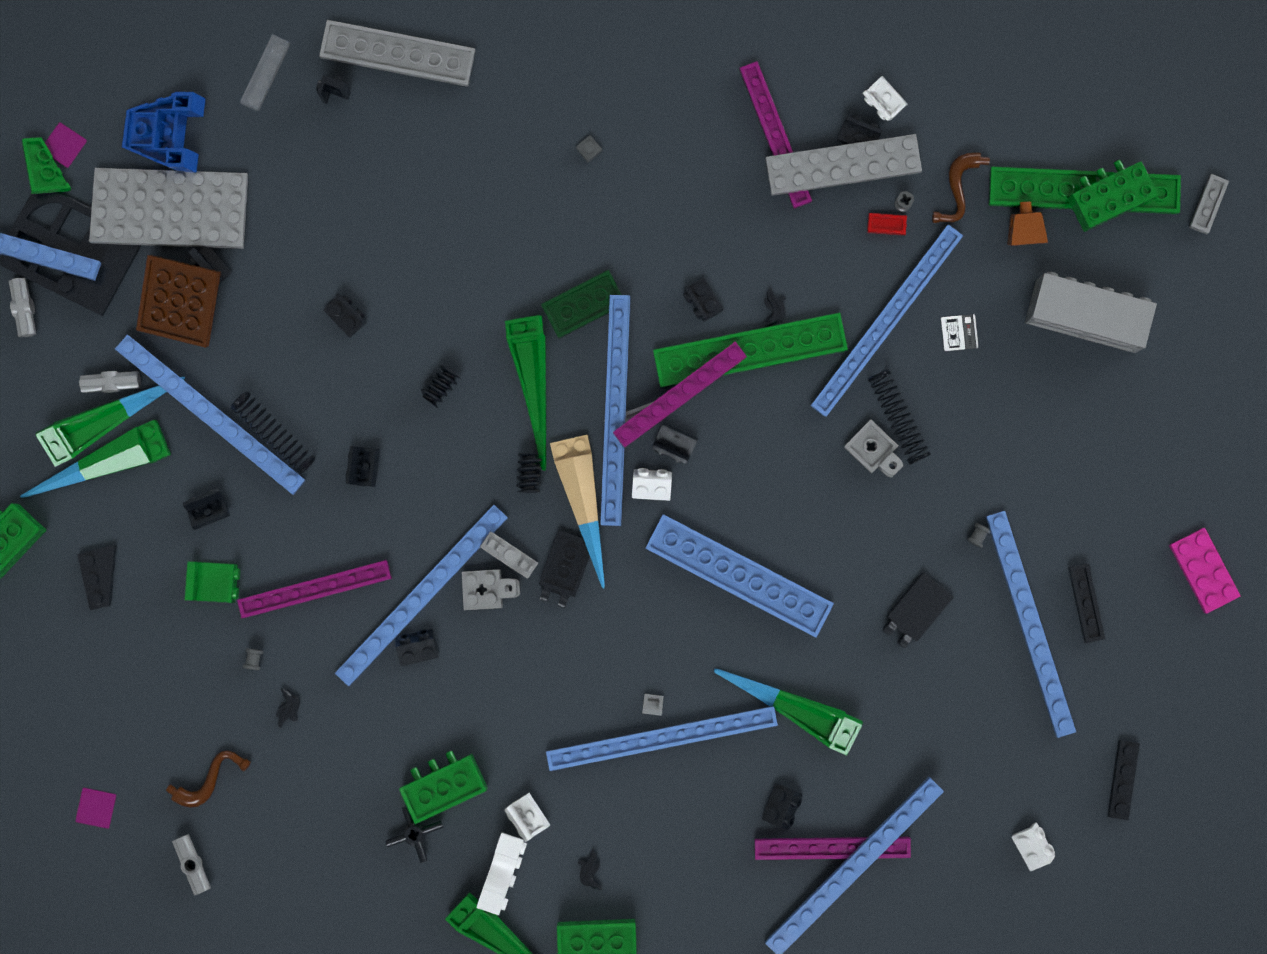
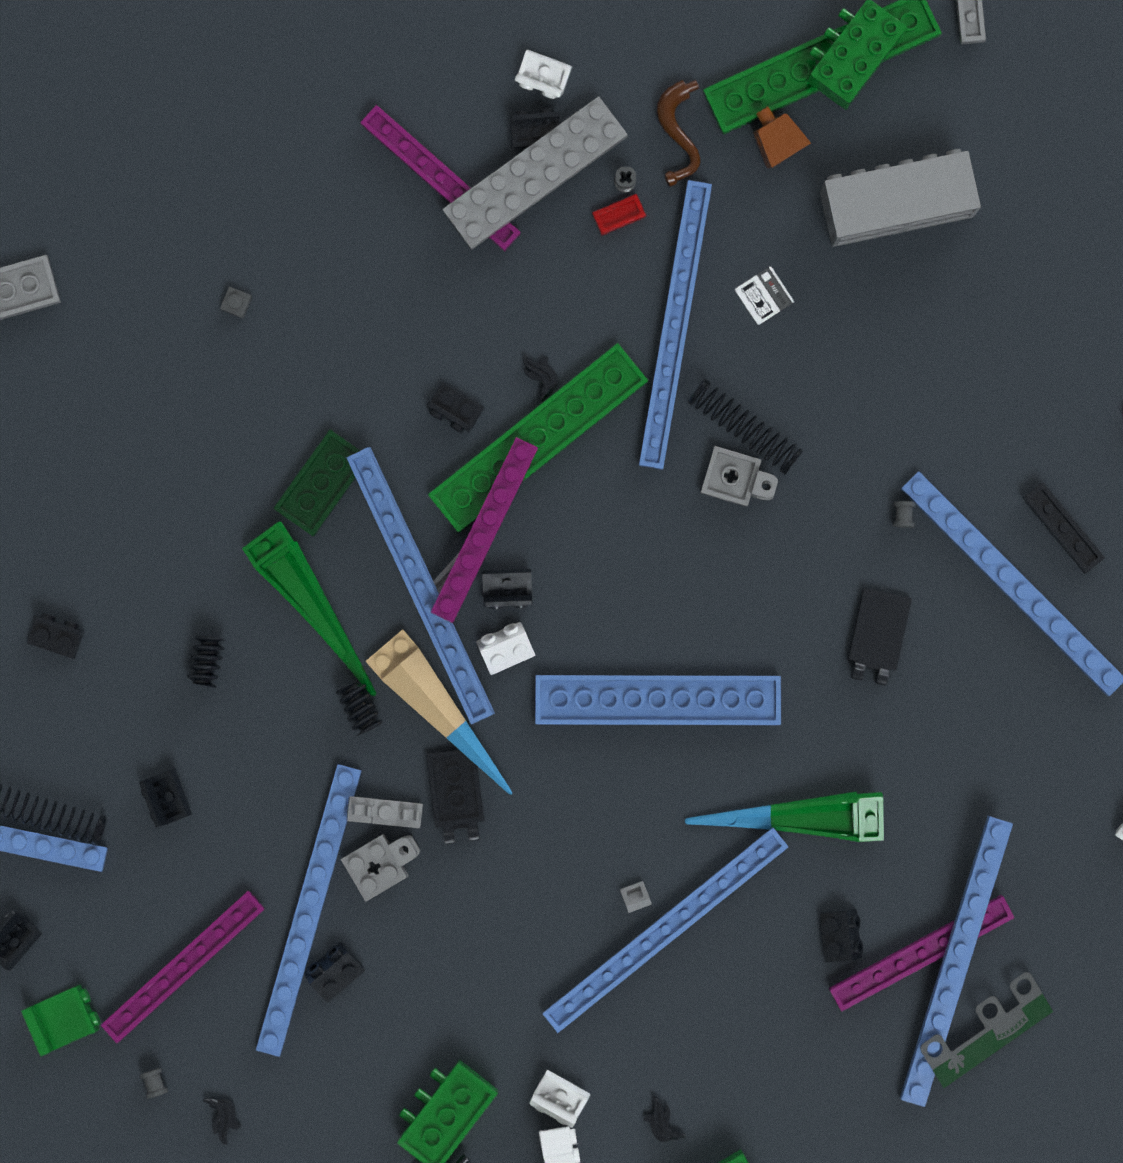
camera: 30 degrees left, 0 degrees up
(856, 932) = (997, 1033): none -> piece

